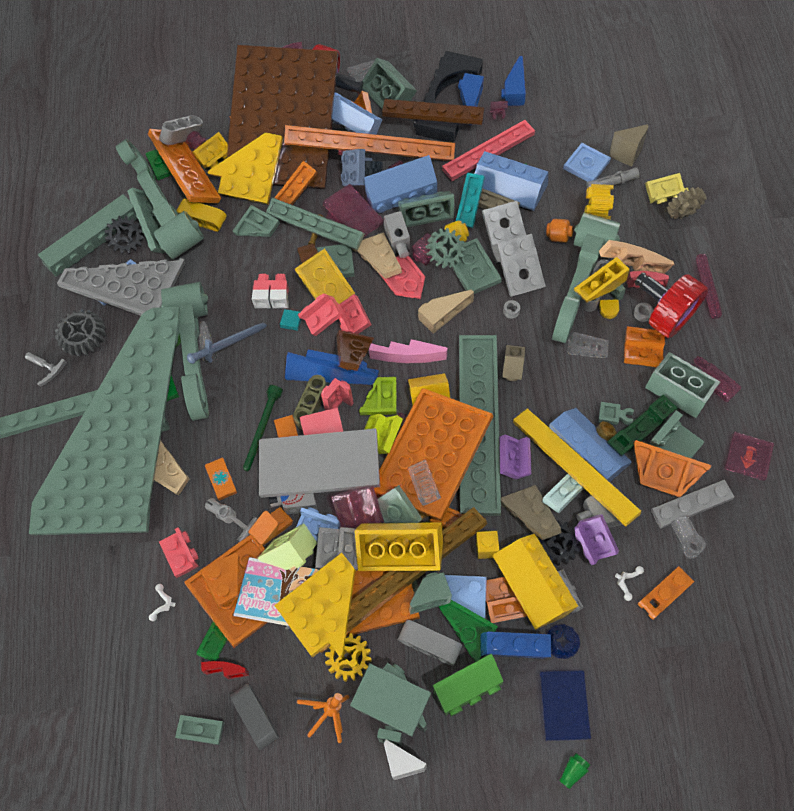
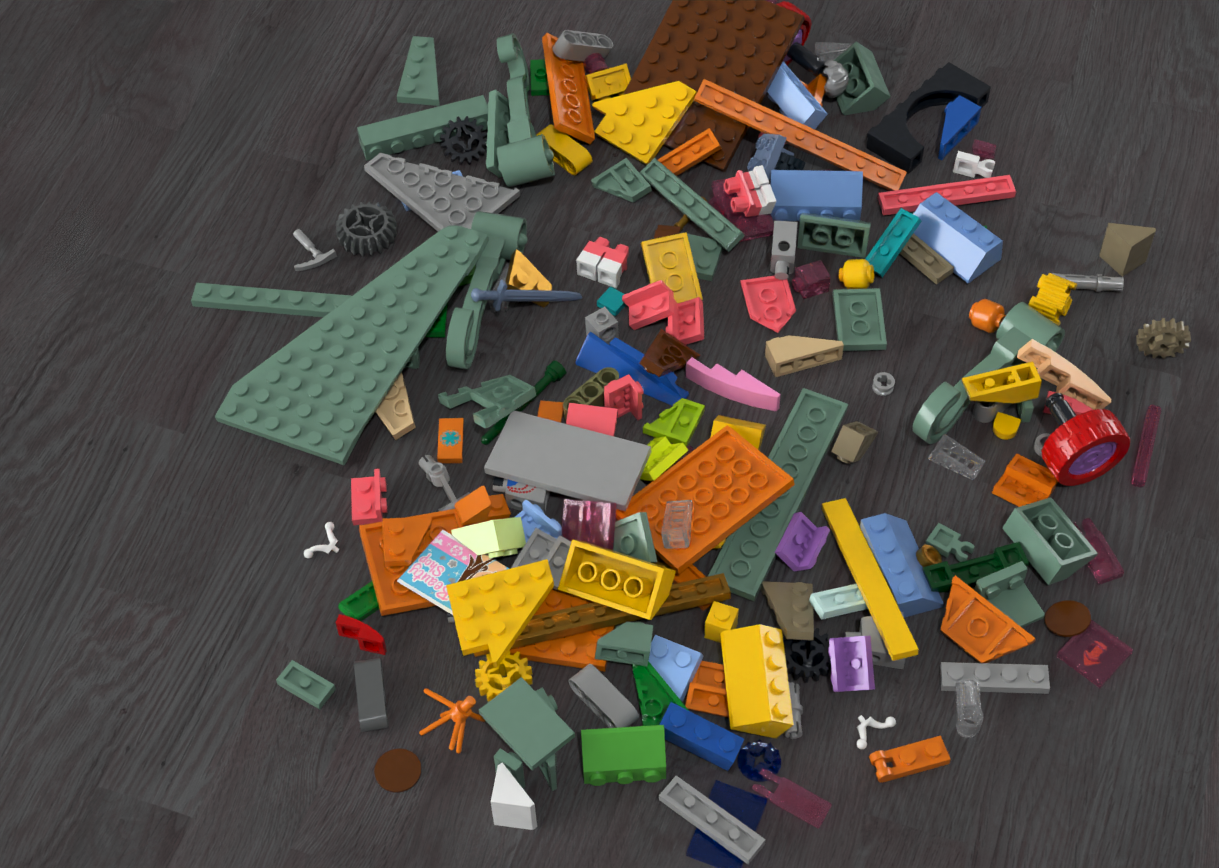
camera: 20 degrees right, 10 degrees down
(66, 194) = (420, 74): none -> sand green wing
(219, 327) = (525, 276): none -> wing
(243, 428) = (498, 396): none -> sand green wing
(293, 343) = (602, 325): none -> light grey brick
(301, 768) = (397, 770): none -> reddish brown piece
(356, 198) = (753, 192): none -> coral hips
(374, 89) = (836, 78): none -> light grey hair
(379, 255) = (752, 266): tan wing -> none
(433, 111) = (896, 126): reddish brown plate -> none
(439, 252) = (824, 280): sand green gear -> none
(493, 122) = (970, 165): none -> white plate
(513, 248) = (917, 314): light grey bracket -> none
(514, 85) = (1017, 131): blue slope -> none
(555, 708) = (712, 819): none -> light grey plate
(586, 163) = (1065, 252): light blue tile -> none
(603, 663) = (795, 799): none -> clear pink hinge
(664, 188) = (1143, 311): light yellow bracket -> none
(719, 437) = (1067, 618): none -> reddish brown piece

